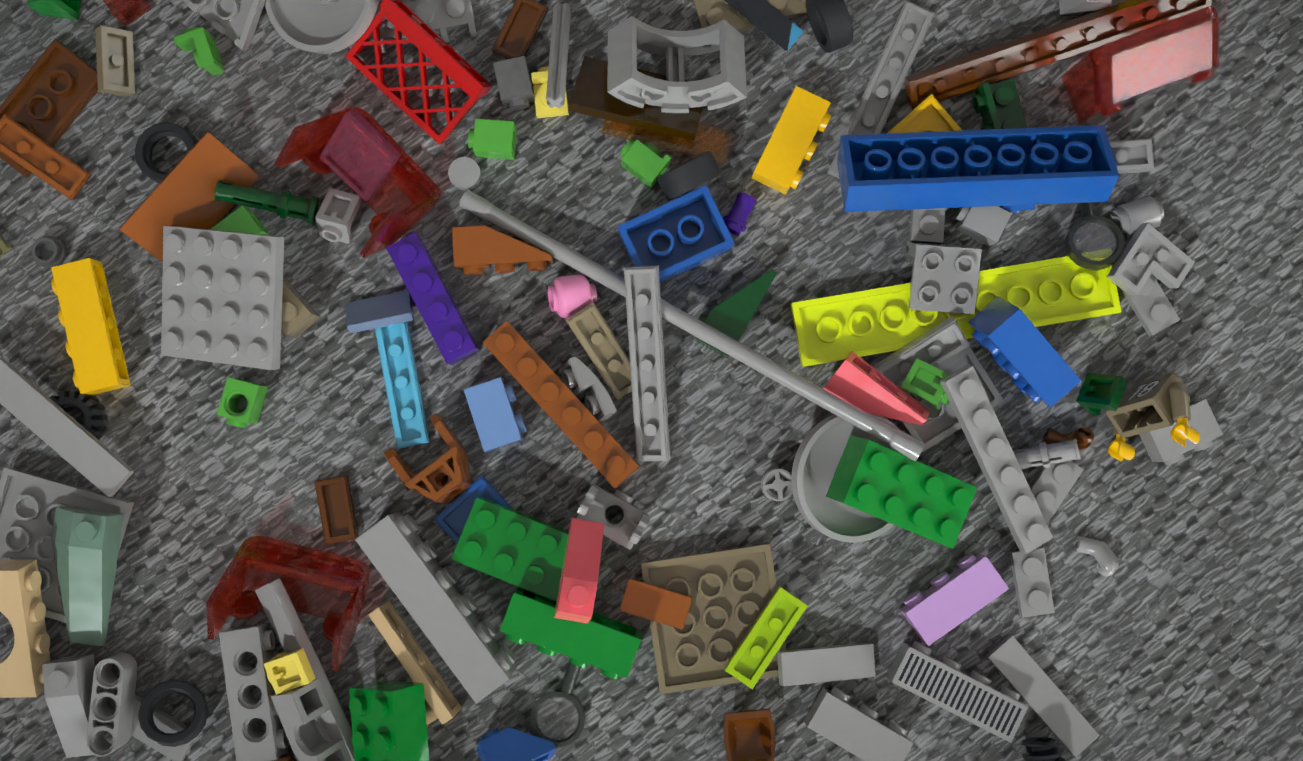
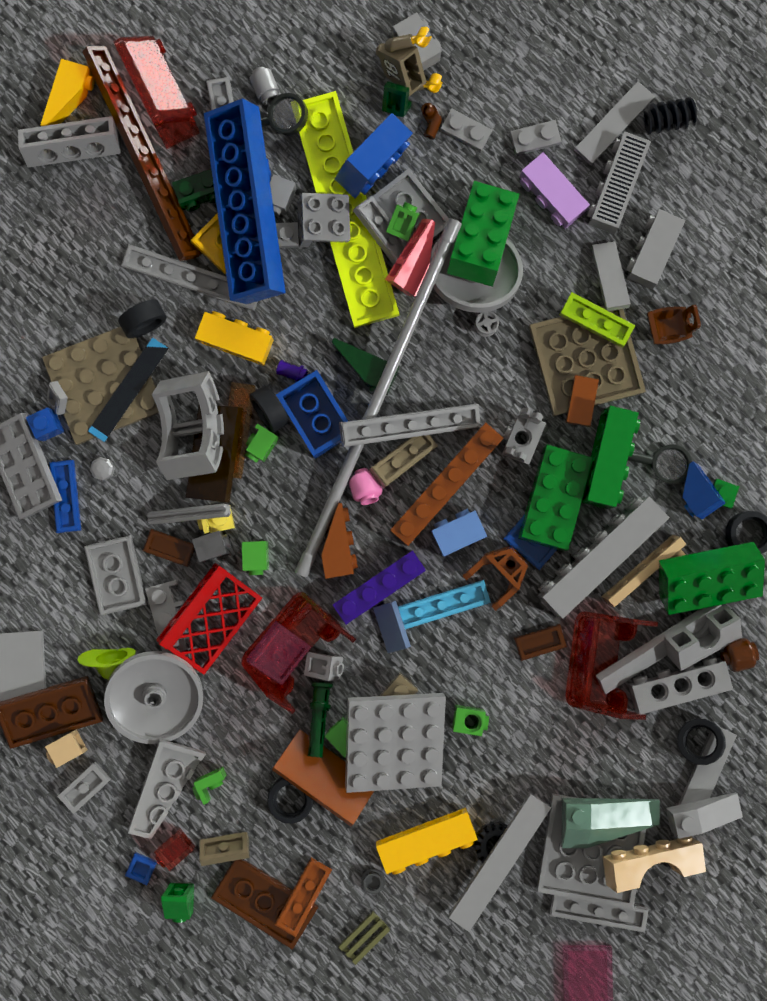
camera: 95 degrees left, 0 degrees up
(104, 718) = (710, 792): light grey beam -> none
(289, 671) = (661, 658): light yellow bracket -> none
(464, 173) = (282, 576): light grey tile -> none
(580, 571) = (567, 453): coral slope -> none
(583, 380) = (425, 473): light grey slope -> none
(996, 458) = (451, 169): light grey plate -> none
(1047, 454) = (444, 135): light grey pin -> none
(1102, 553) = (512, 87): light grey arm -> none
(1149, 254) = (293, 74): light grey plate -> none
(1152, 307) = (324, 73): light grey plate -> none

